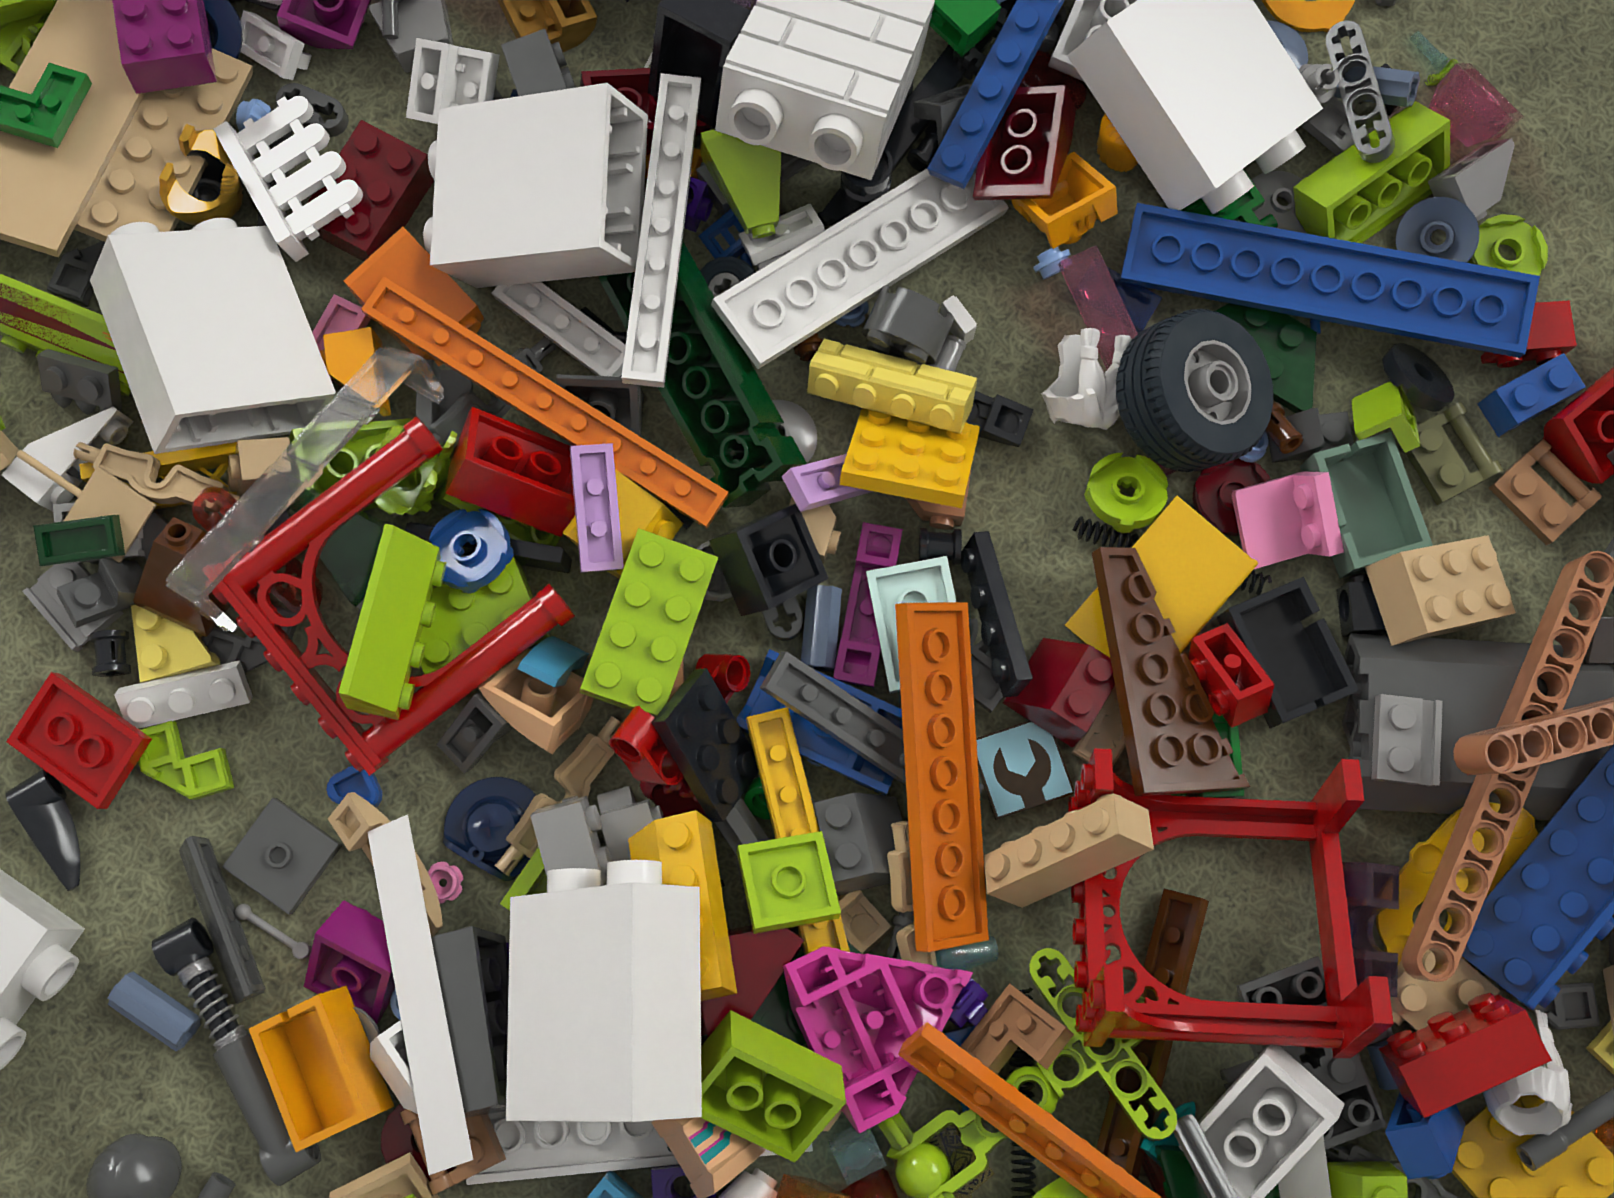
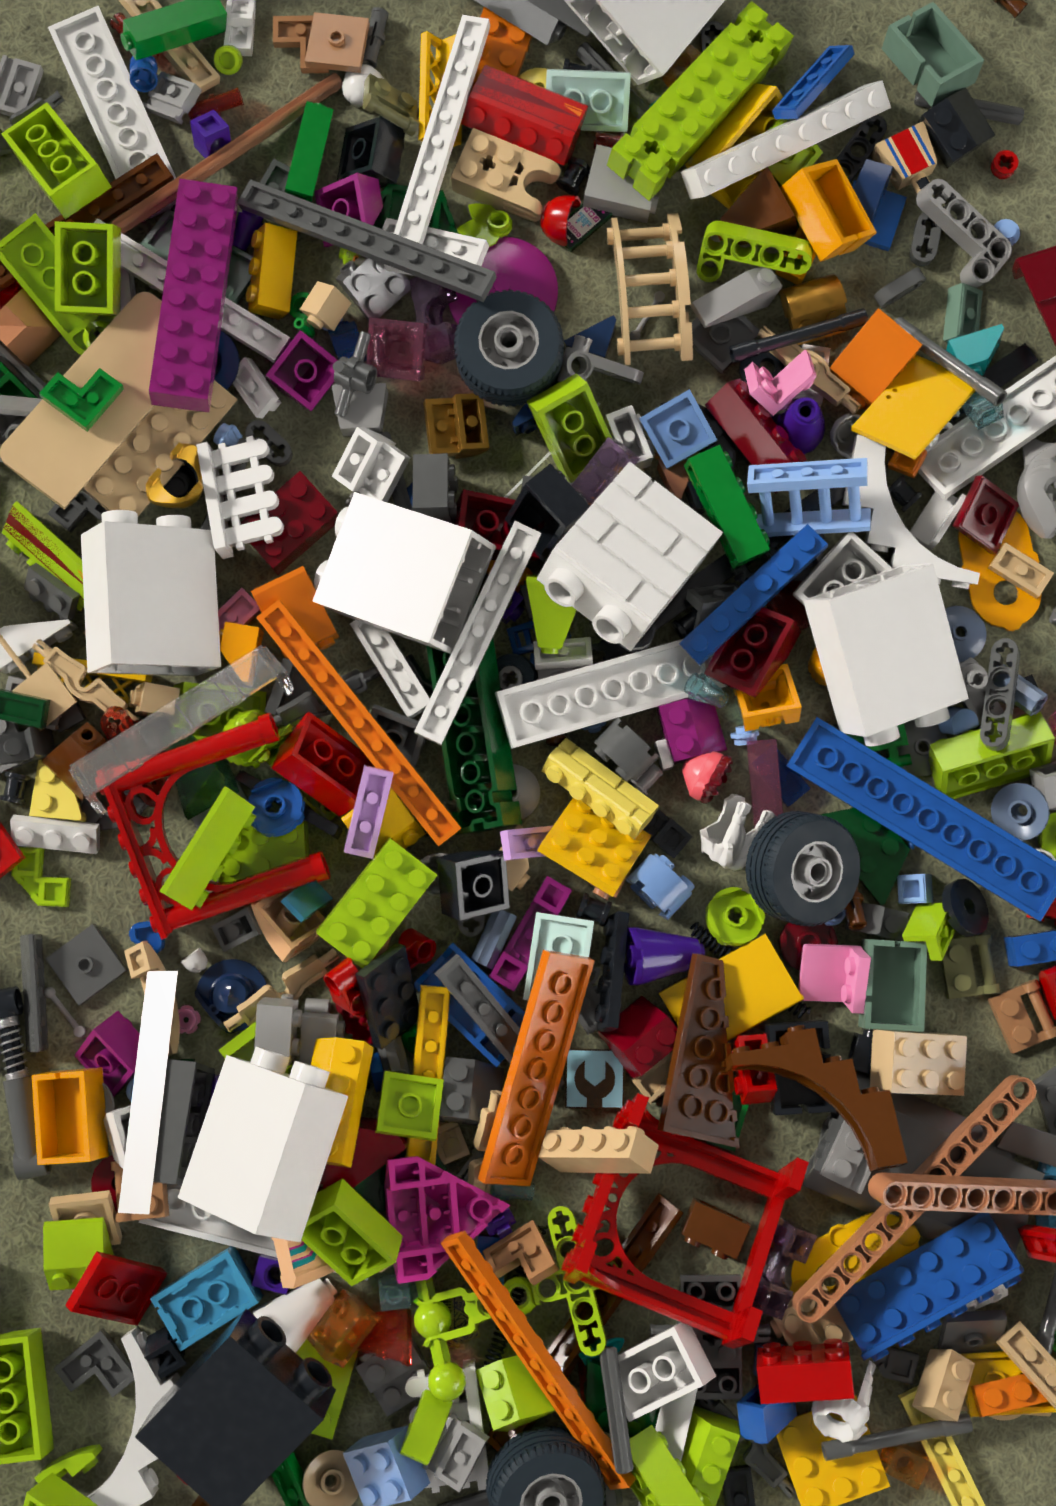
camera: 20 degrees right, 5 degrees up
(430, 799) = (195, 961): none -> white hinge
(728, 860) = (376, 1071): none -> blue tile
(980, 275) = (691, 729): none -> magenta slope
(981, 217) = (703, 689): none -> clear light blue cone
(1016, 481) = (660, 885): none -> medium blue brick
(1022, 324) = (705, 773): none -> coral hair
(1045, 573) = (657, 954): none -> dark purple cone
(1257, 908) = (714, 1228): none -> reddish brown brick
(1319, 149) = (959, 722): none -> medium blue brick
(1341, 380) = (915, 888): none -> light blue slope
(1406, 670) = (835, 1080): none -> reddish brown arch

